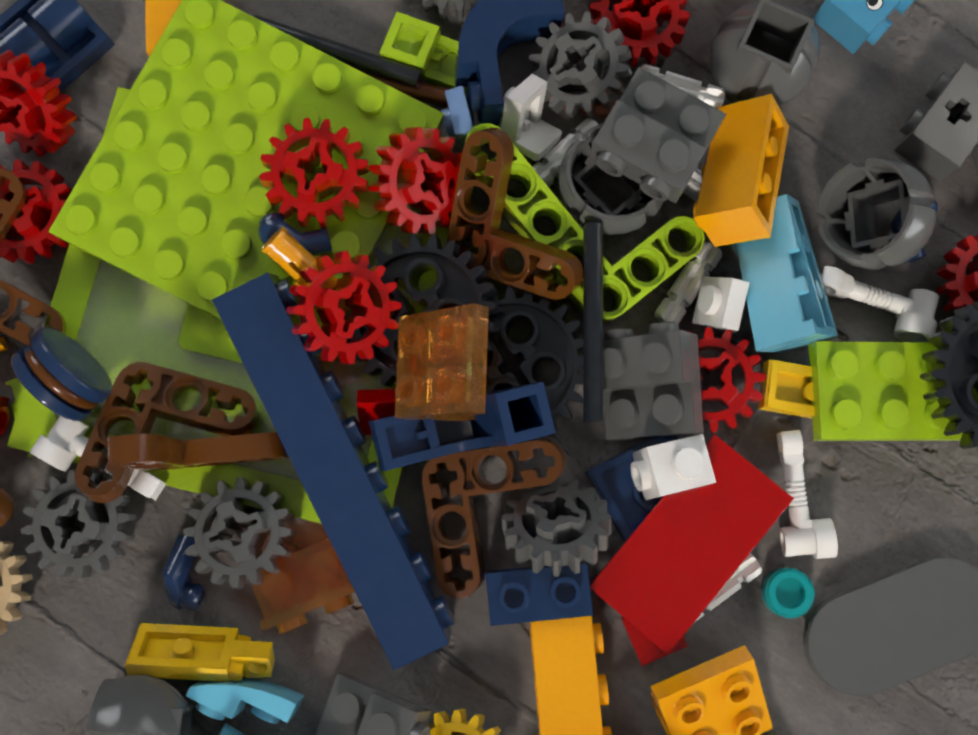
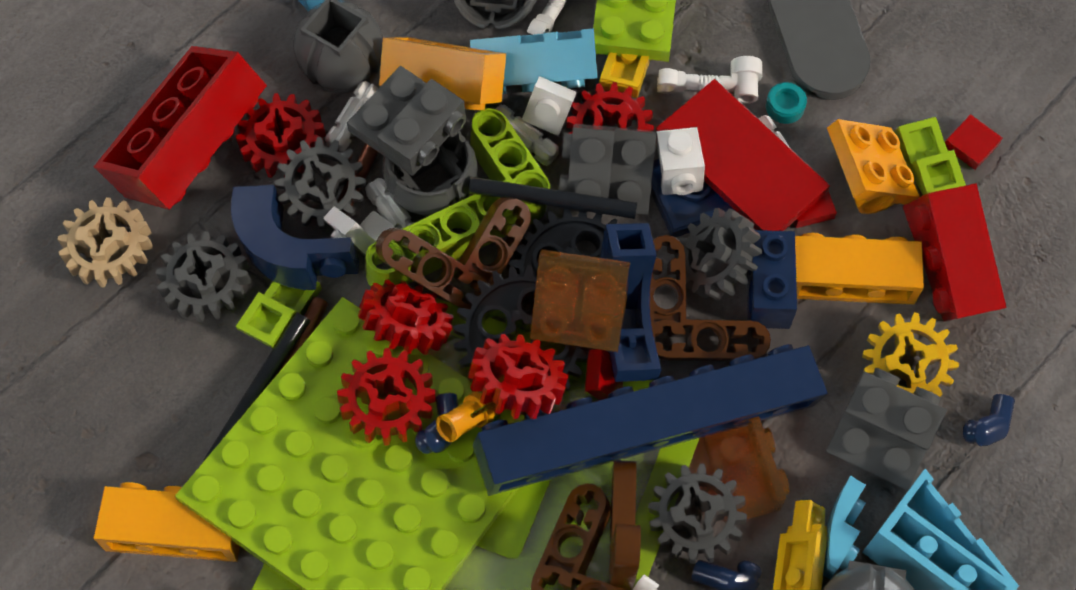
camera: 80 degrees left, 15 degrees down
(458, 117) = (346, 285): medium blue plate -> none

